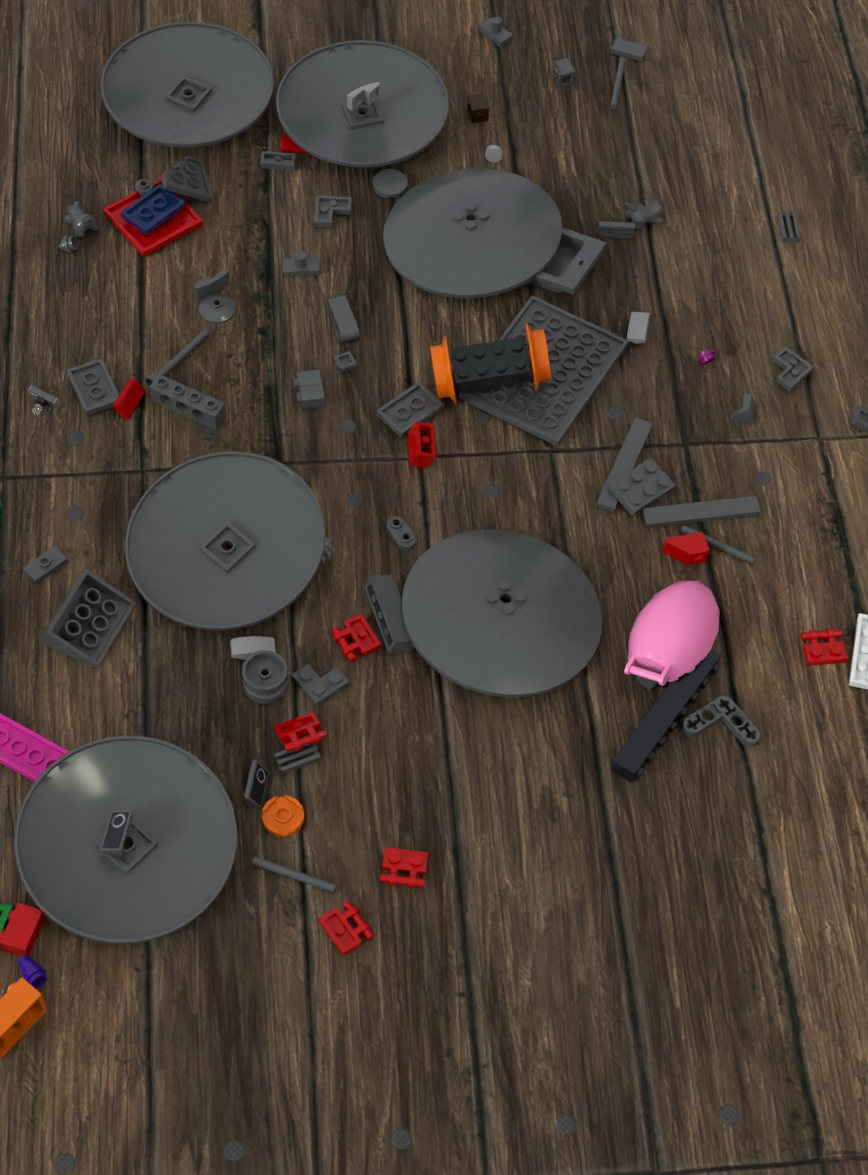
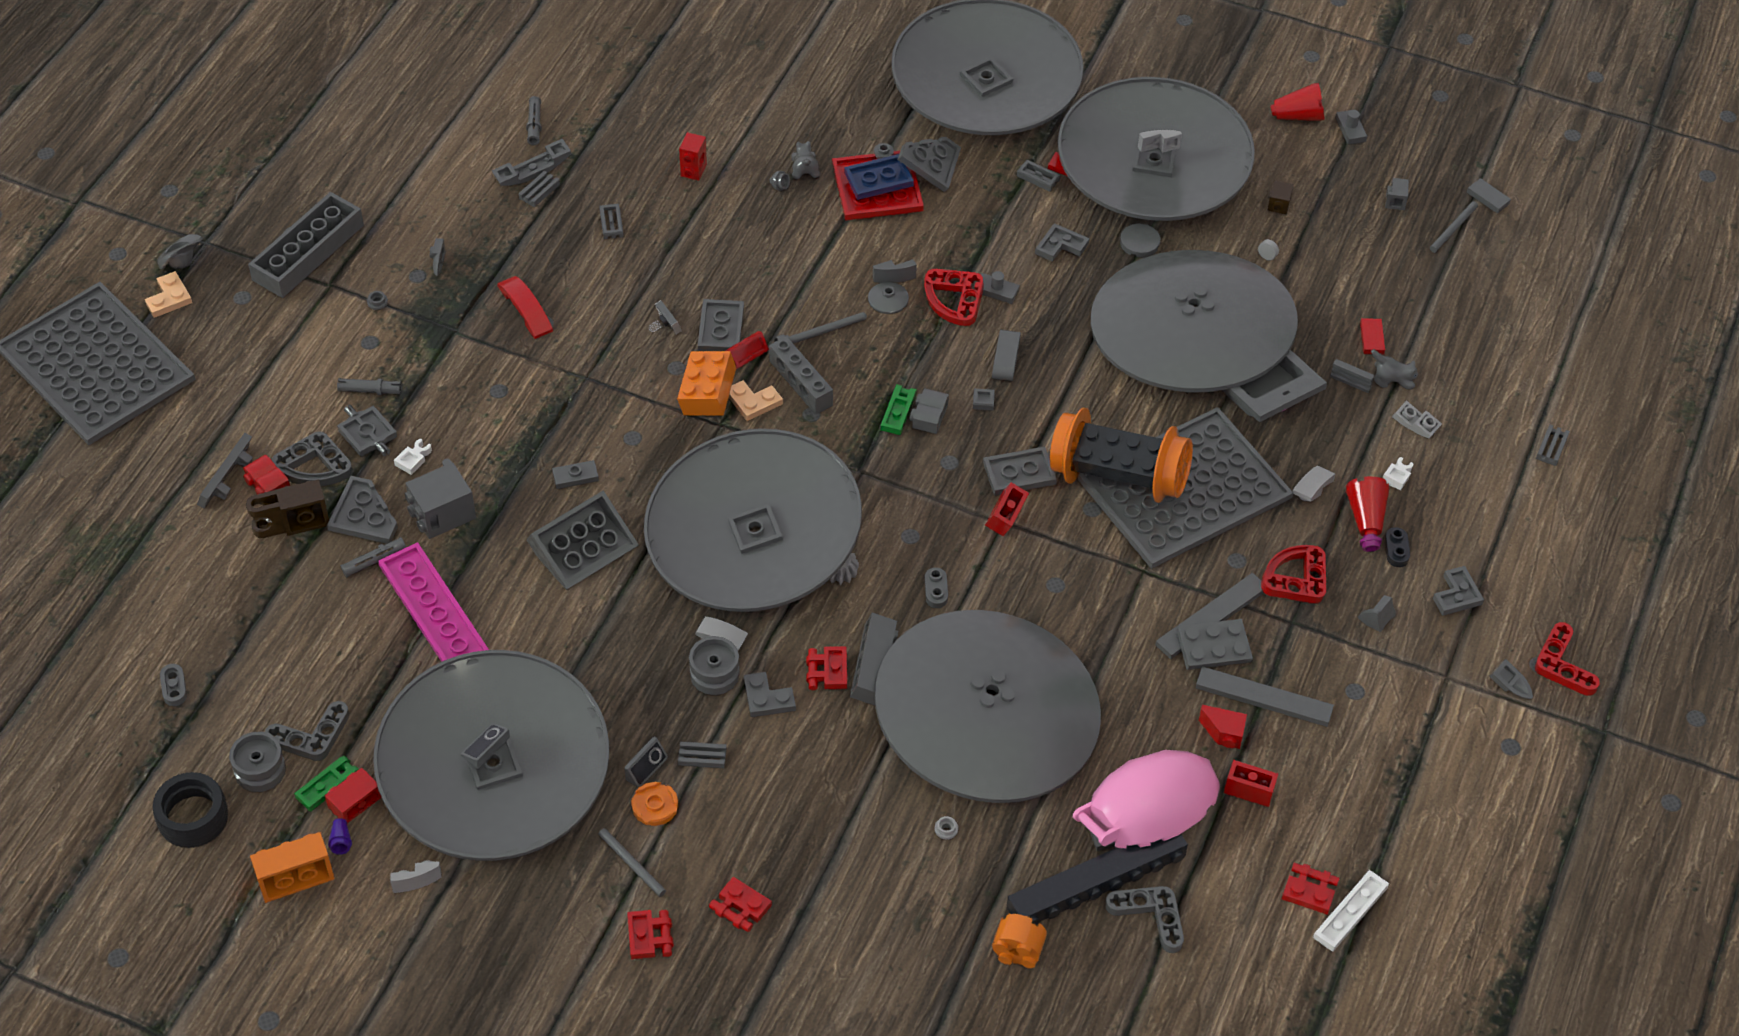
camera: 30 degrees right, 5 degrees down
(113, 440) = (706, 383): none -> orange brick
(126, 968) = (424, 874): none -> light grey slope
(160, 442) = (752, 404): none -> light nougat plate
(275, 274) = (963, 286): none -> red beam
(283, 398) = (898, 409): none -> green plate
(299, 727) = (717, 732): red plate -> none
(451, 27) = (1300, 105): none -> red cone
(528, 721) = (946, 822): none -> light grey plate
(610, 193) = (1372, 335): none -> red tile
(643, 792) = (1019, 940): none -> orange brick
(679, 409) = (1304, 585): none -> red beam
(687, 247) = (1420, 423): none -> light grey slope
(690, 327) = (1368, 503): none -> red cone
(694, 295) = (1398, 474): none -> white plate
(722, 546) = (1263, 738): dark grey bar -> none
(724, 350) = (1397, 545): none -> black plate
(736, 584) = (1251, 783): none -> red brick

